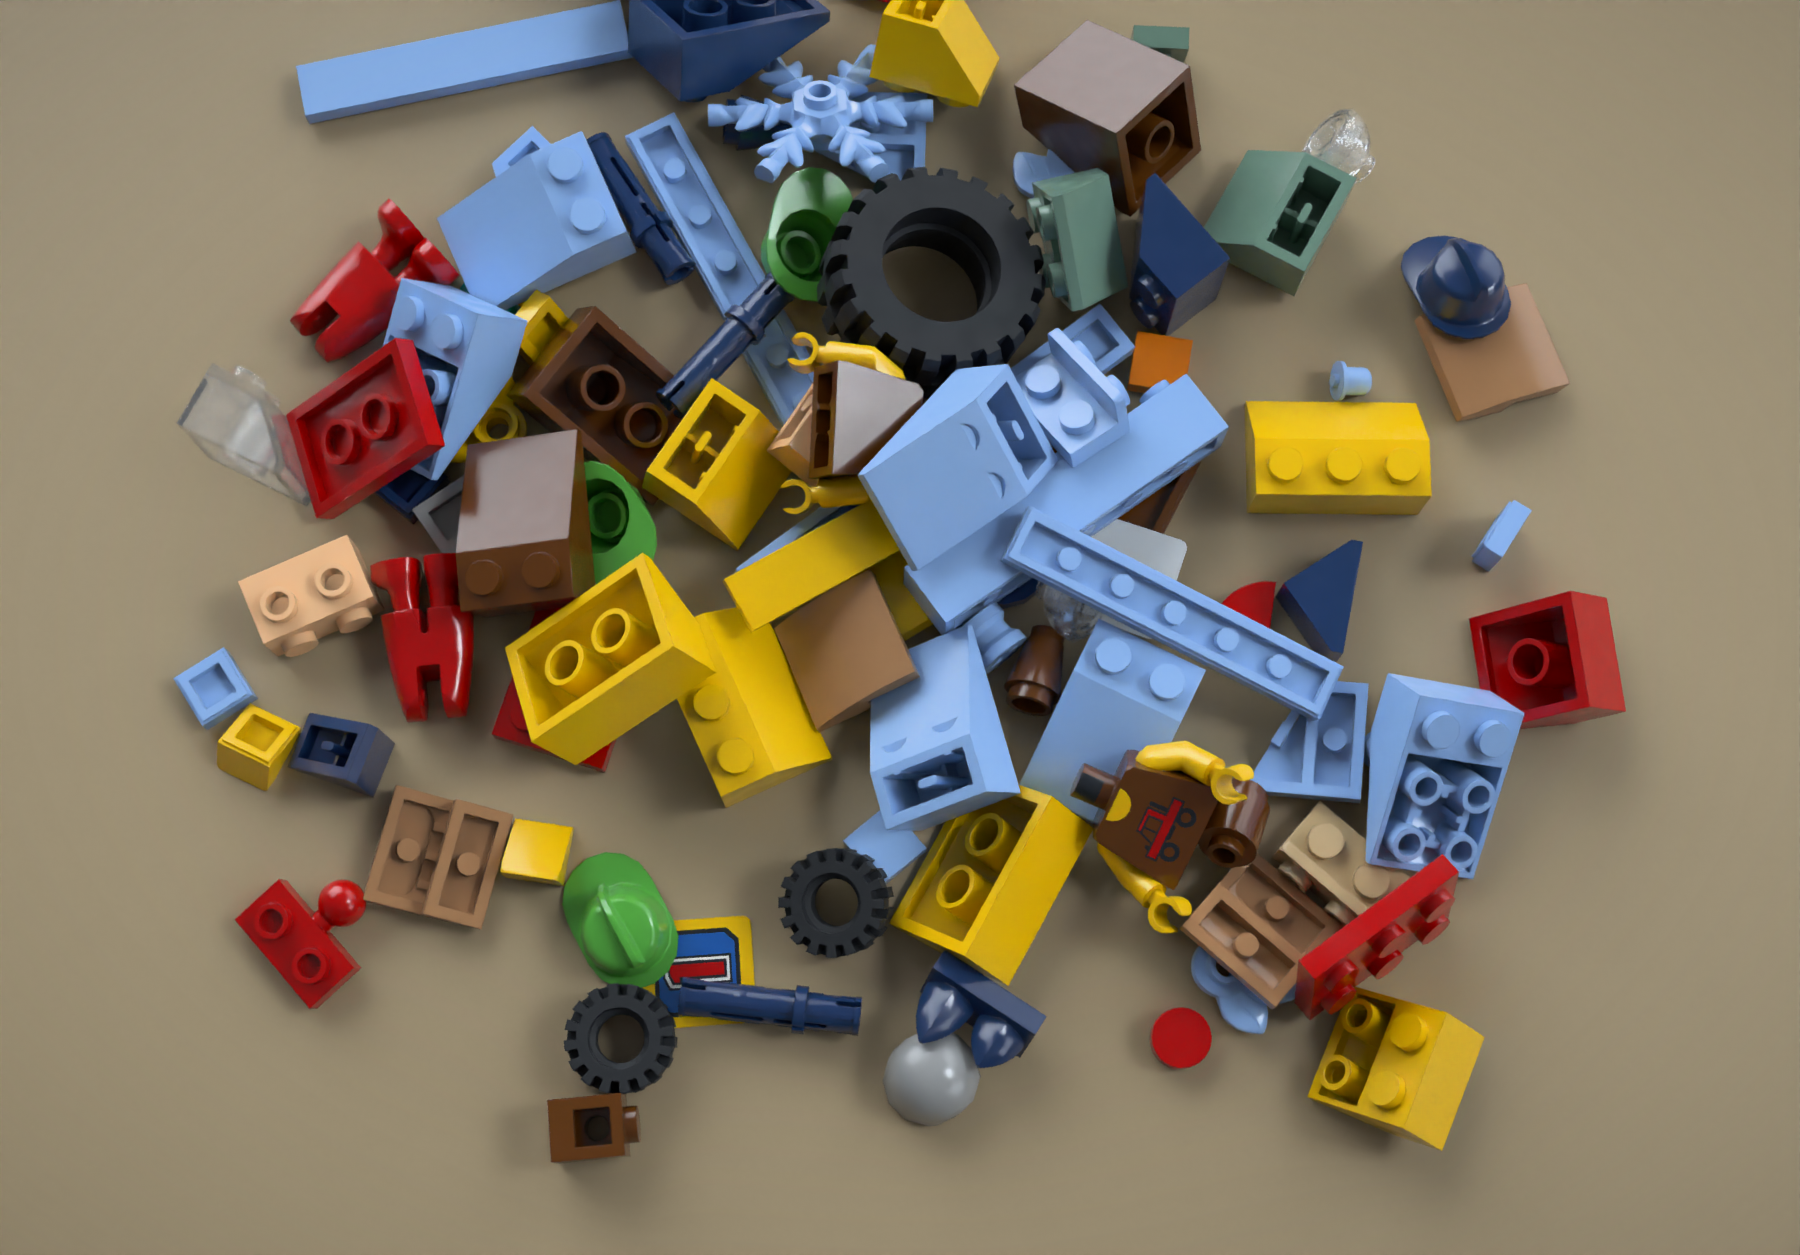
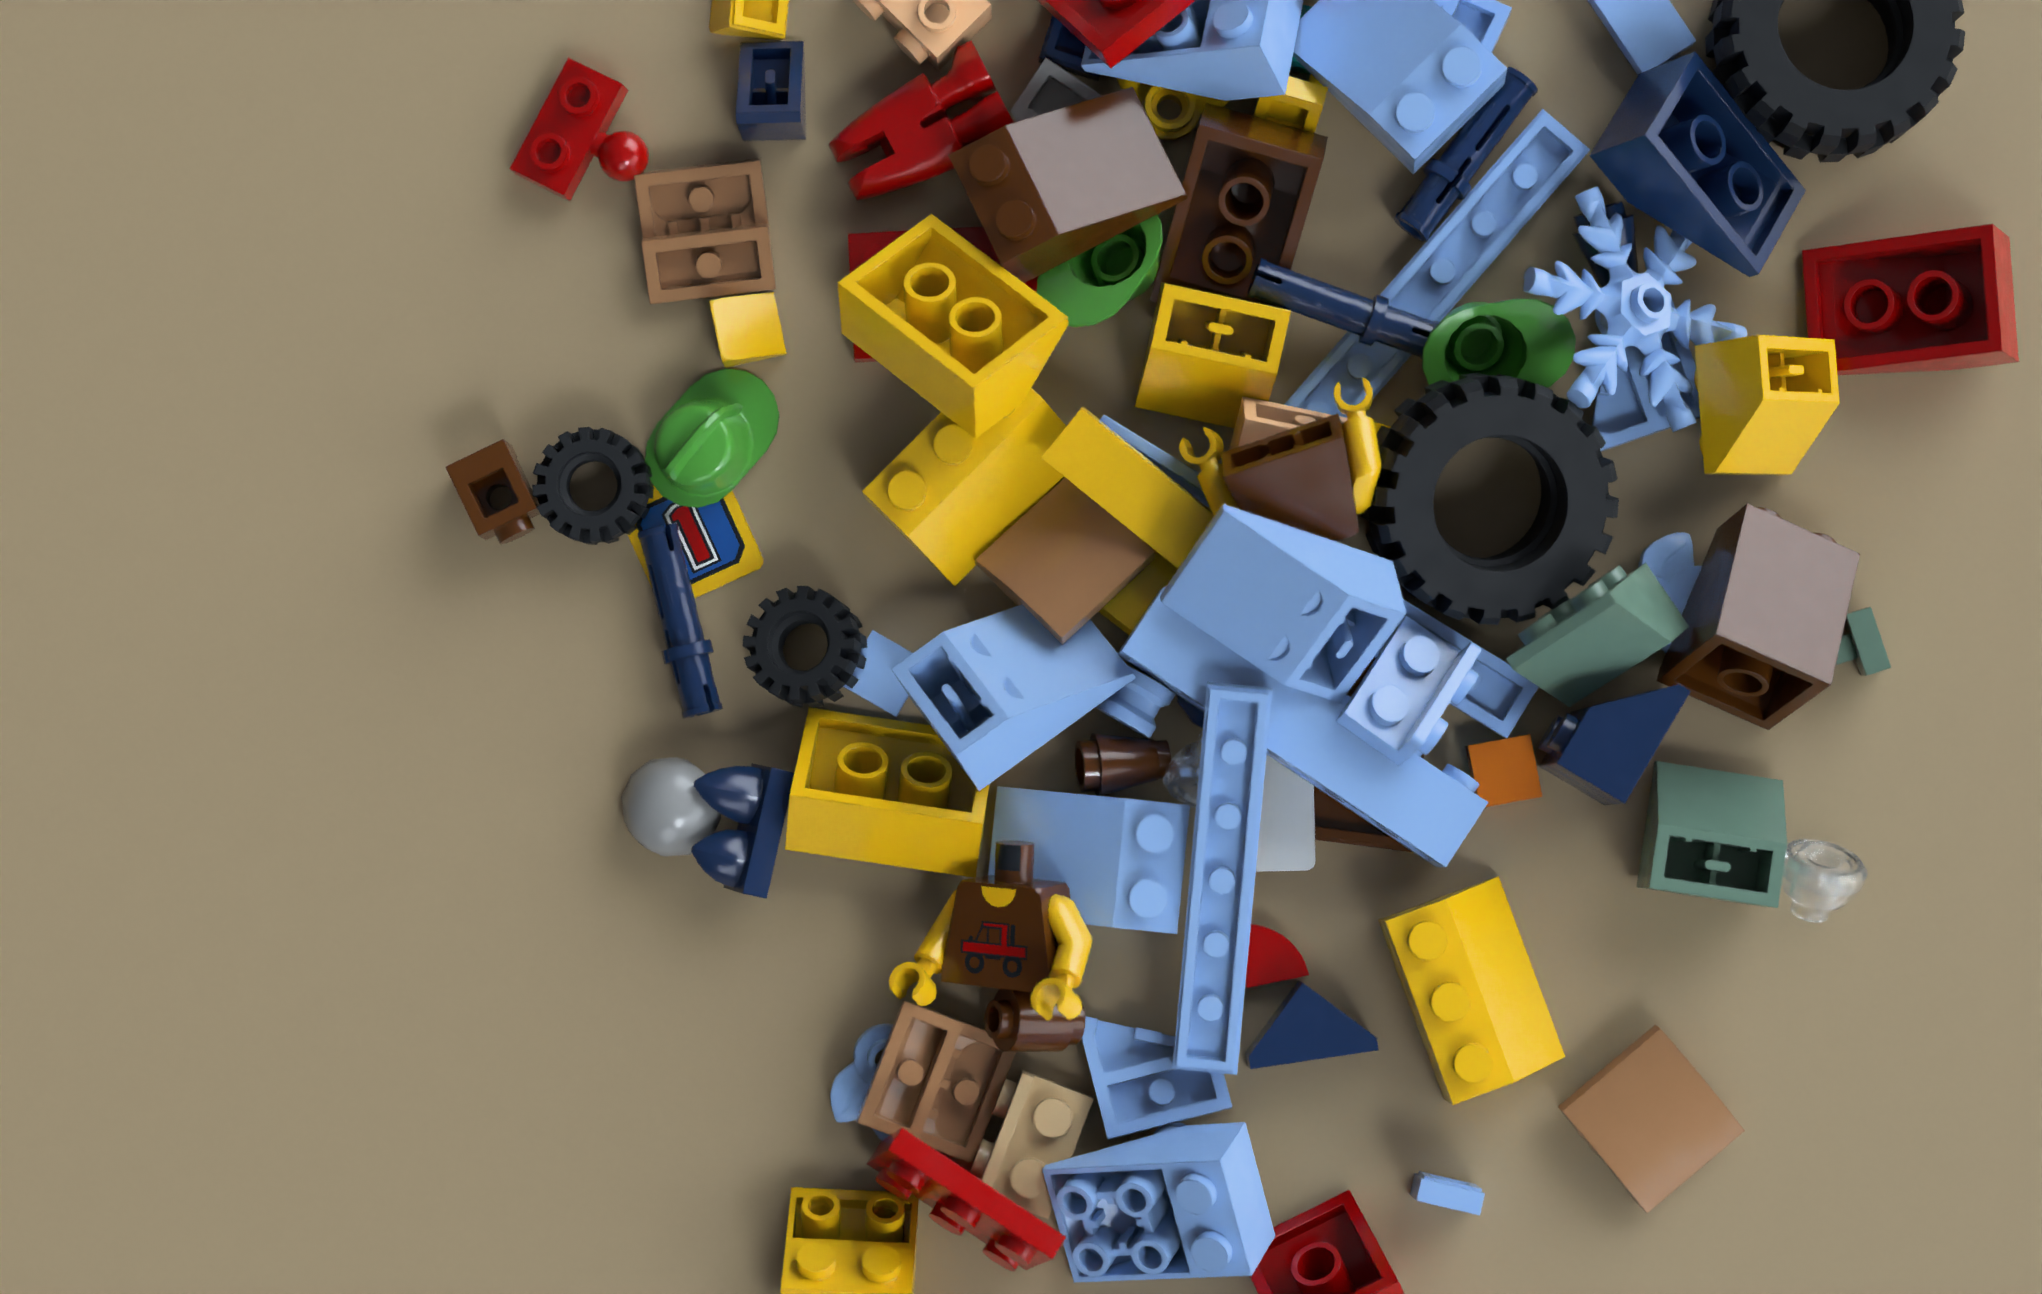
camera: 70 degrees right, 10 degrees up
(1180, 1038) = (801, 1040): red tile -> none
(1349, 381) = (1561, 978): light blue piece -> none
(1457, 285) = (1710, 1056): dark blue piece -> none

